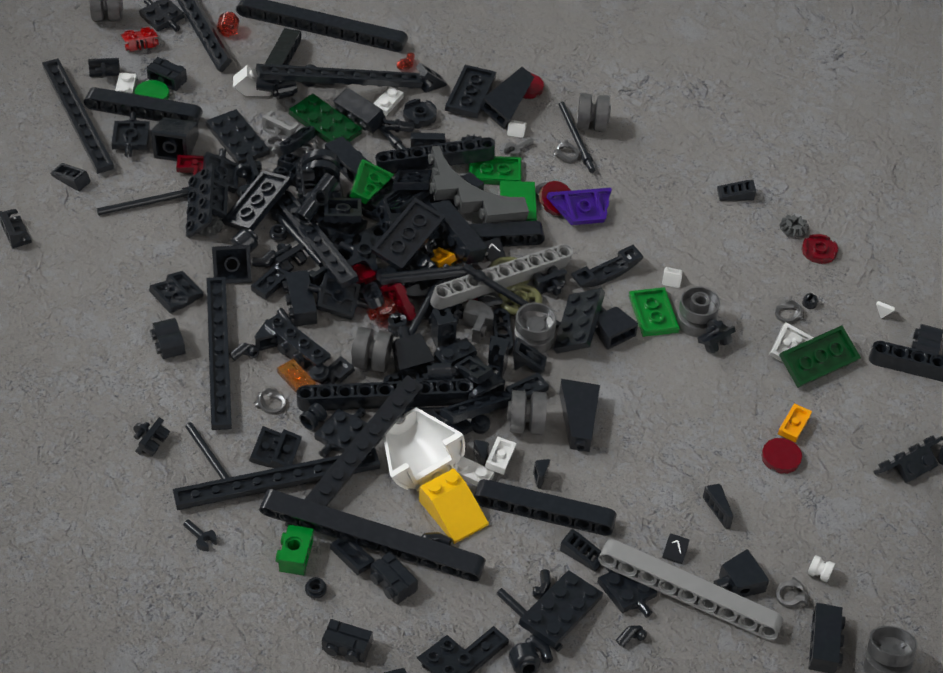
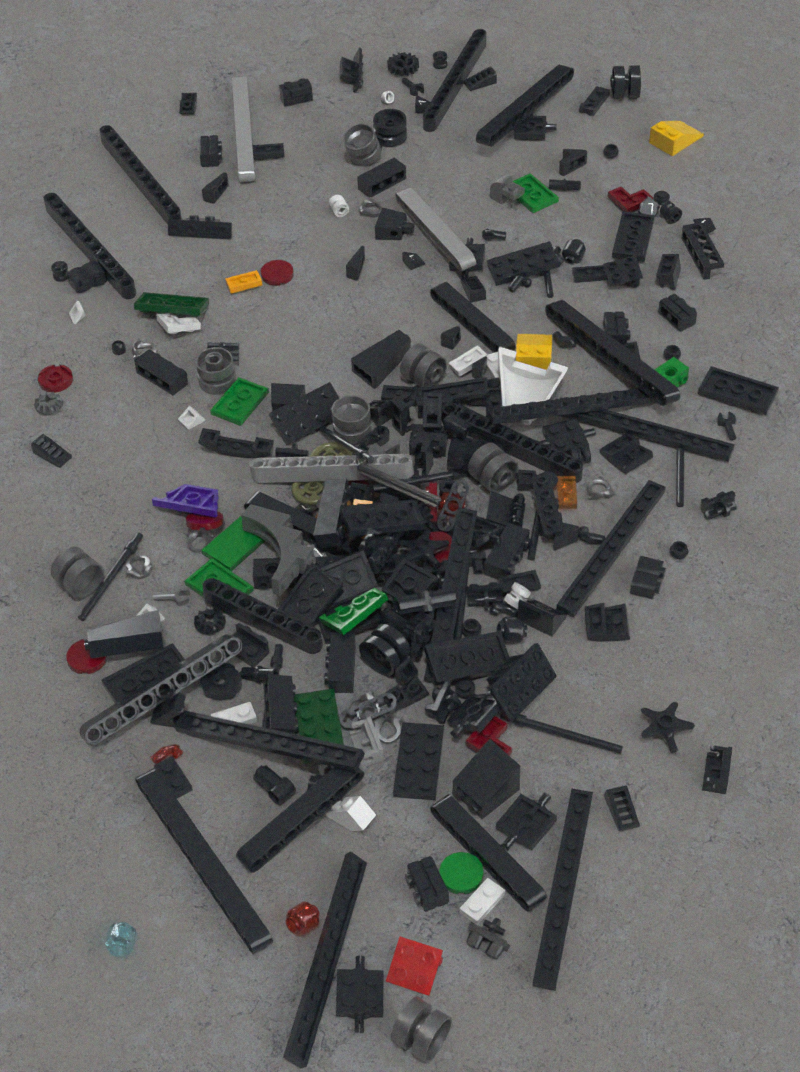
camera: 135 degrees left, 0 degrees up
(73, 234) = (665, 725): none -> black animal
(159, 379) = (679, 550): none -> black plate
(215, 577) = (738, 390): none -> black plate
(263, 262) = (518, 592): none -> white wheel
(331, 329) = (505, 509): none -> black hinge
(387, 53) = (174, 777): none -> black plate
(447, 82) = (151, 689): none -> black beam
(744, 293) = (161, 372): none -> black brick

